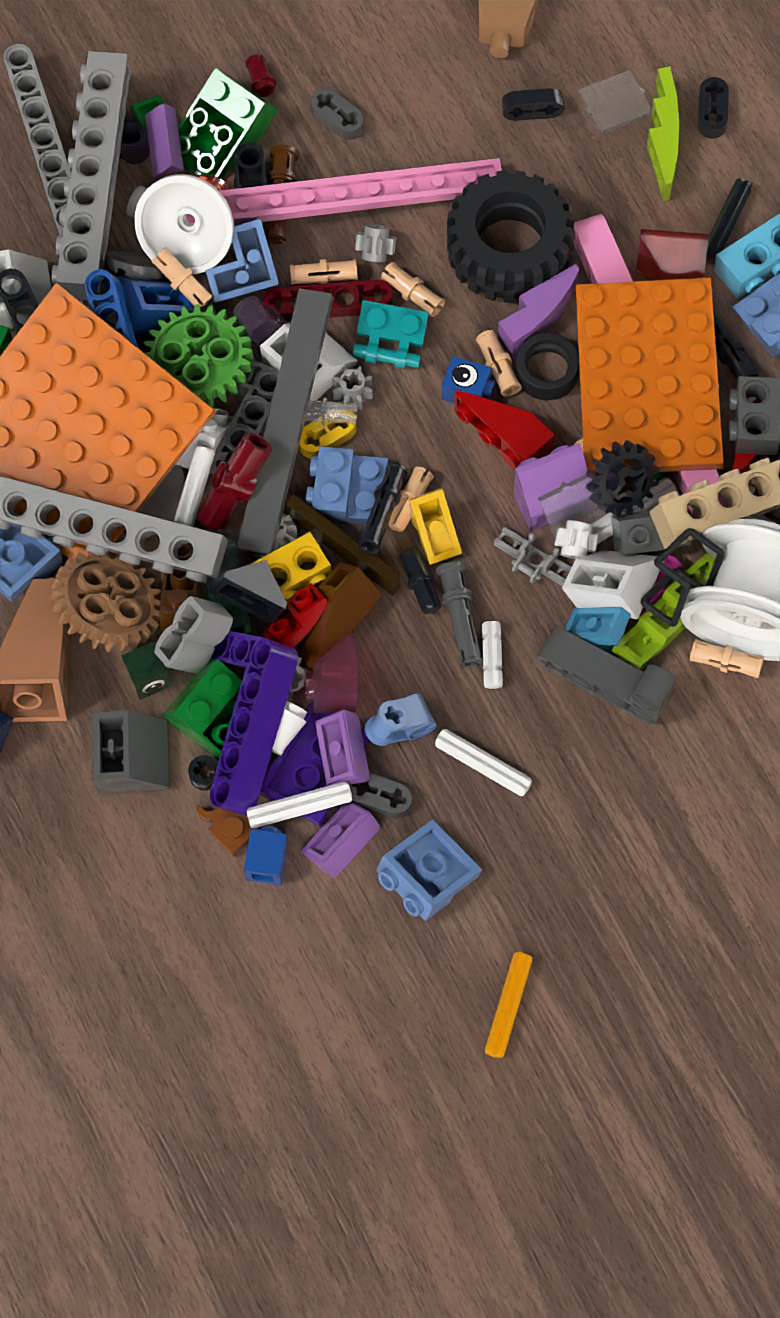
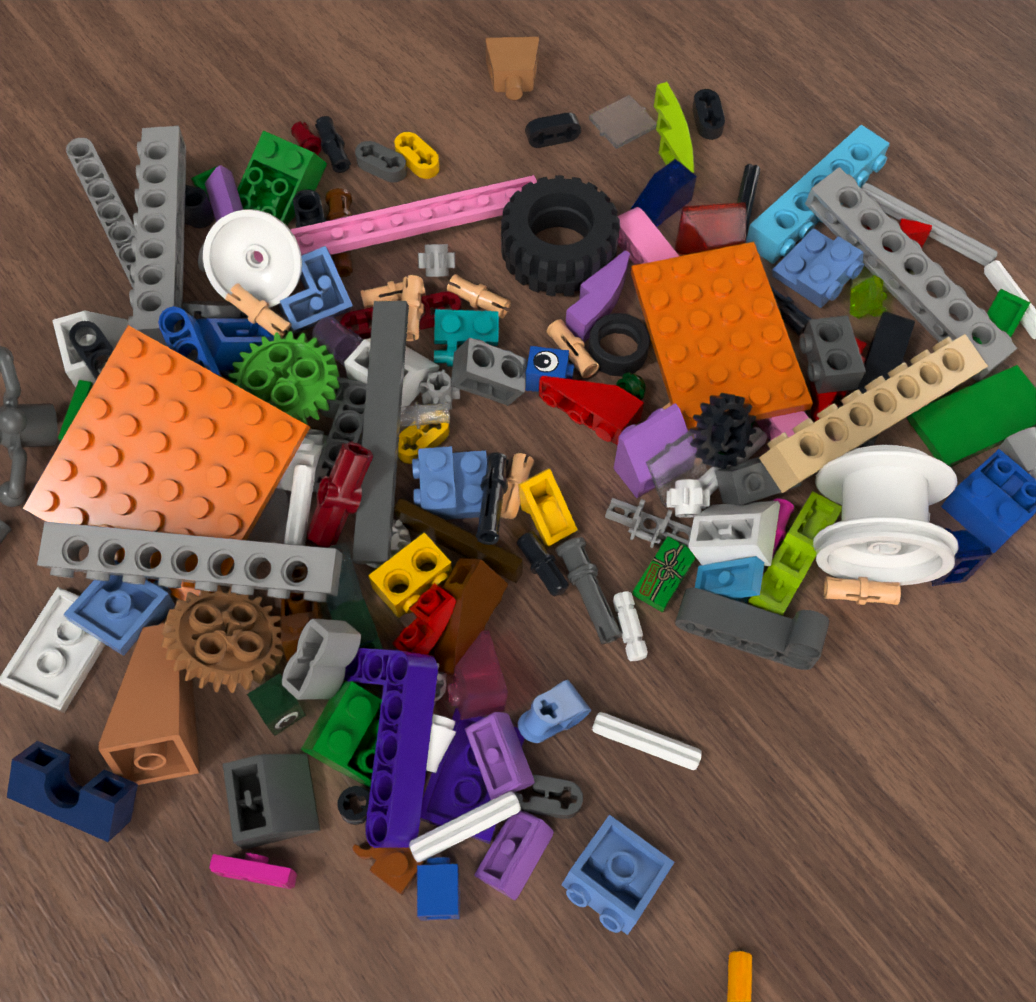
camera: 15 degrees left, 5 degrees down
(106, 810) = (253, 869): none -> dark pink plate
(252, 590) = (375, 601): black slope -> none
(288, 85) = (332, 144): none -> black pin
(340, 289) = (412, 294): none -> light nougat pin
(383, 108) = (420, 152): none -> yellow beam
(403, 382) = (489, 371): none -> dark grey brick
(537, 611) = (664, 574): none -> green tile
(550, 414) = (632, 384): none -> dark green plate
(637, 202) = (666, 192): none -> clear blue slope
(680, 576) = (810, 516): black piece -> none

